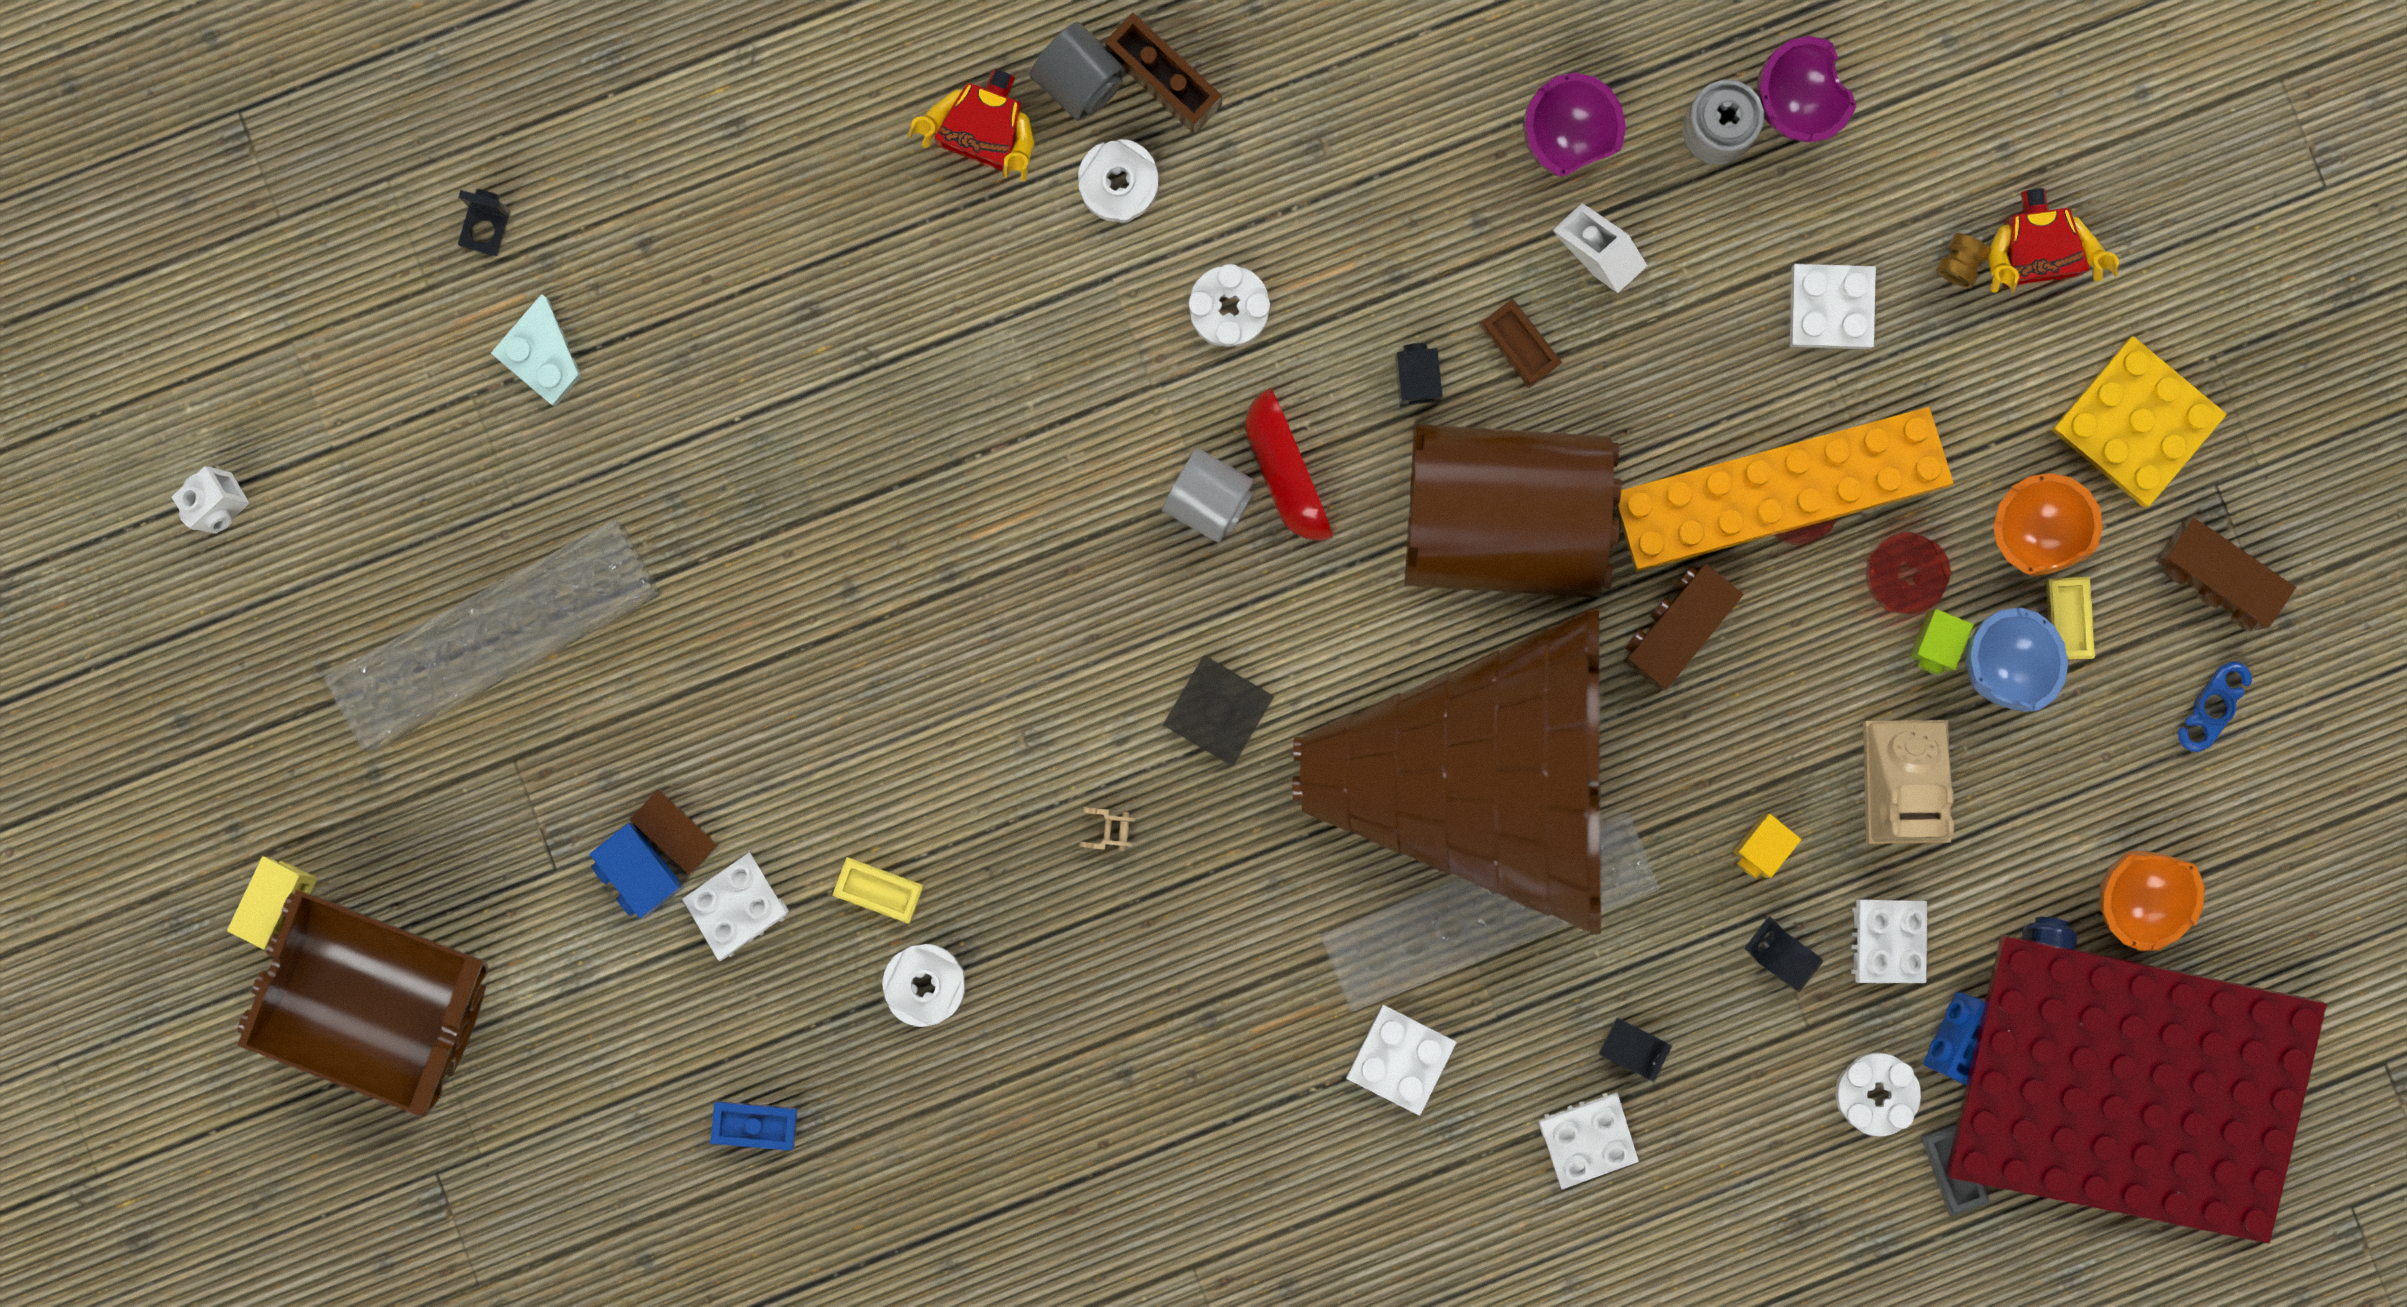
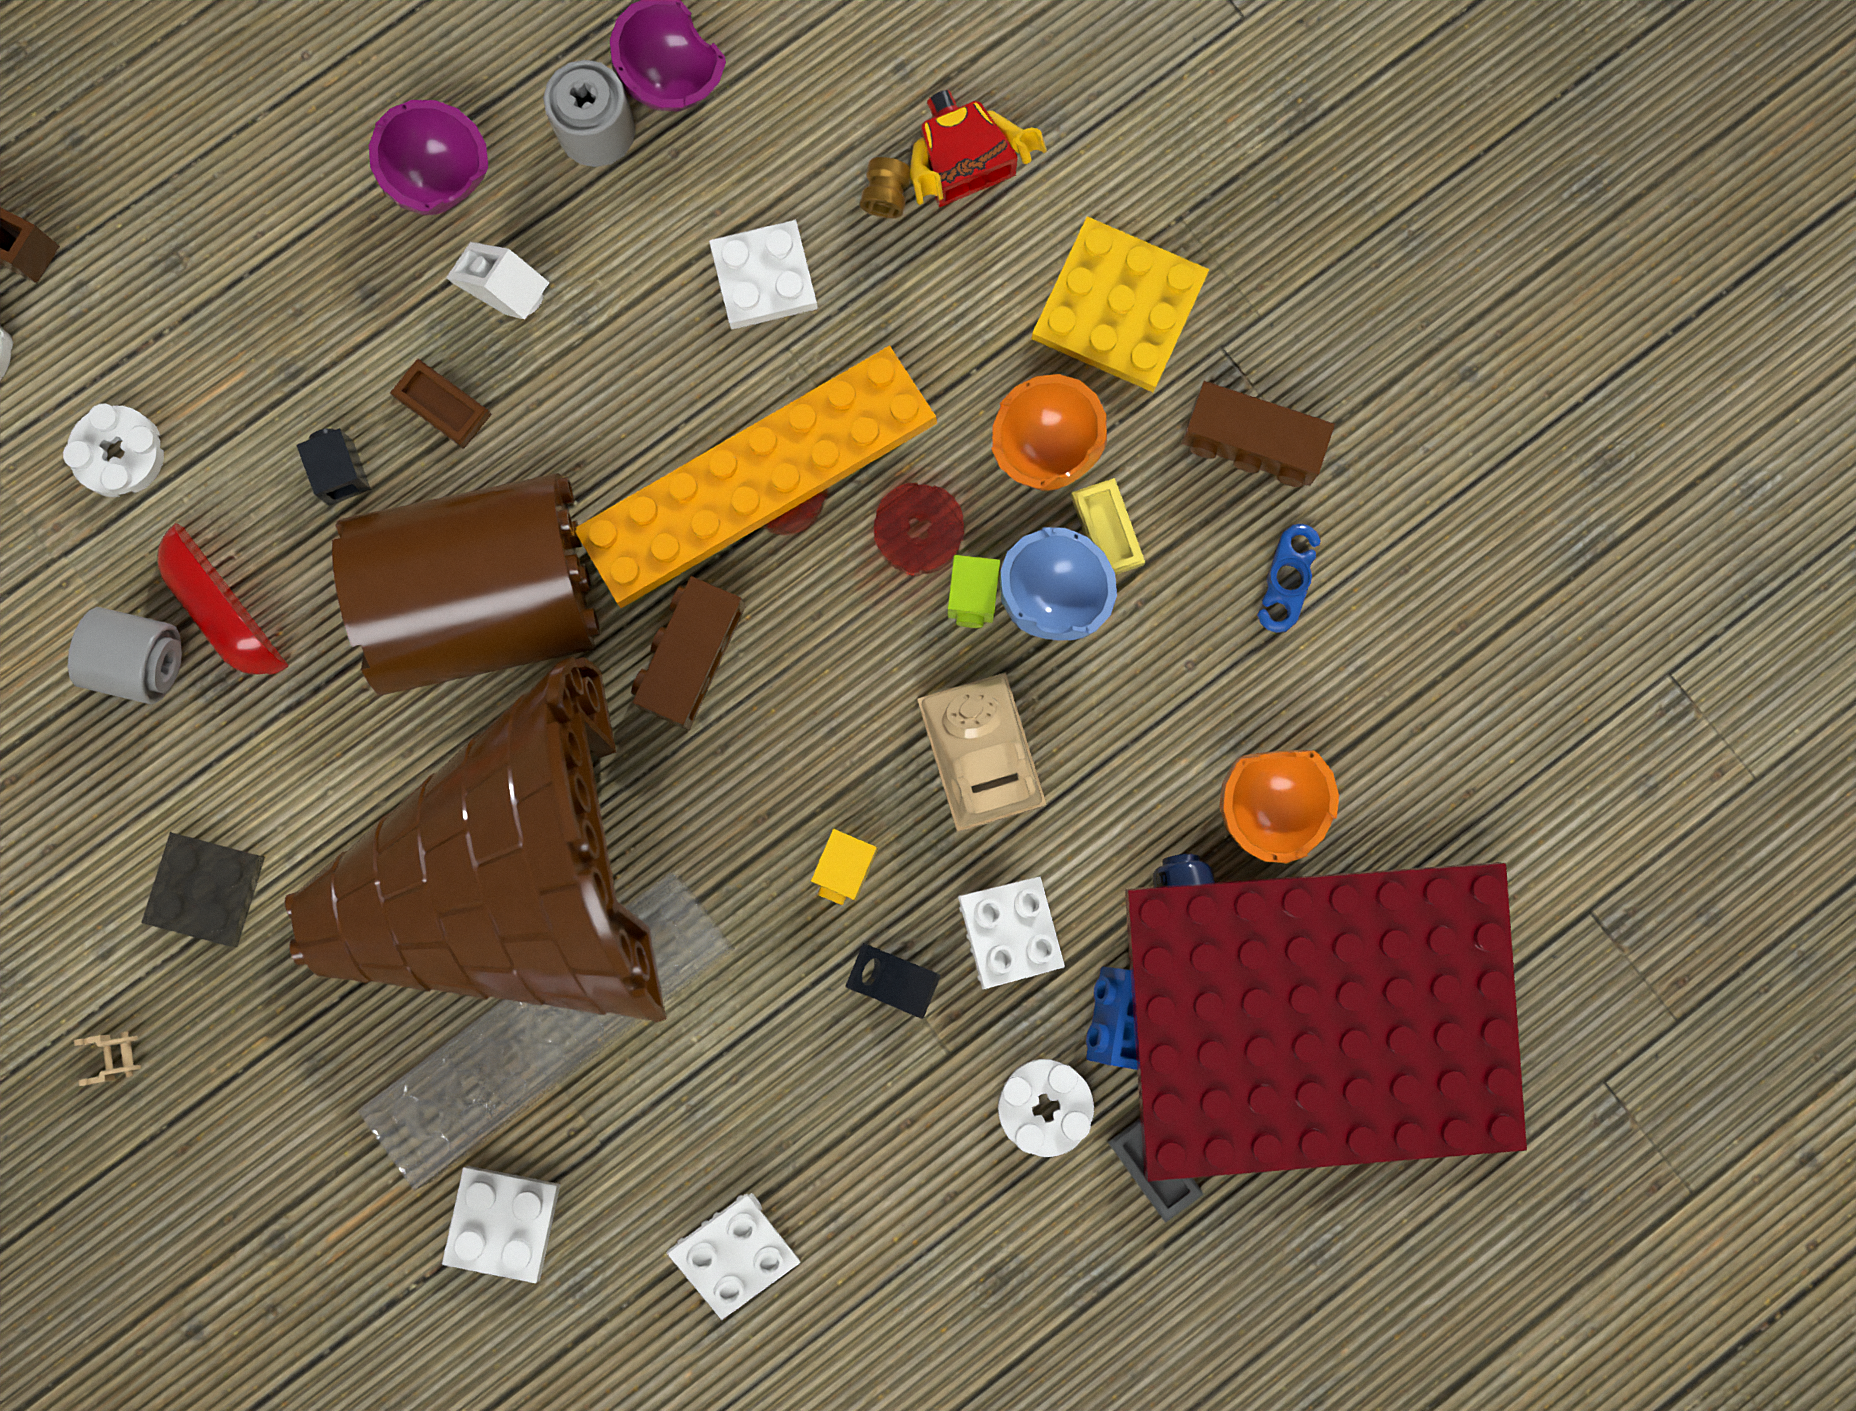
camera: 20 degrees left, 5 degrees down
(1635, 1049) = (757, 1135): black bracket -> none

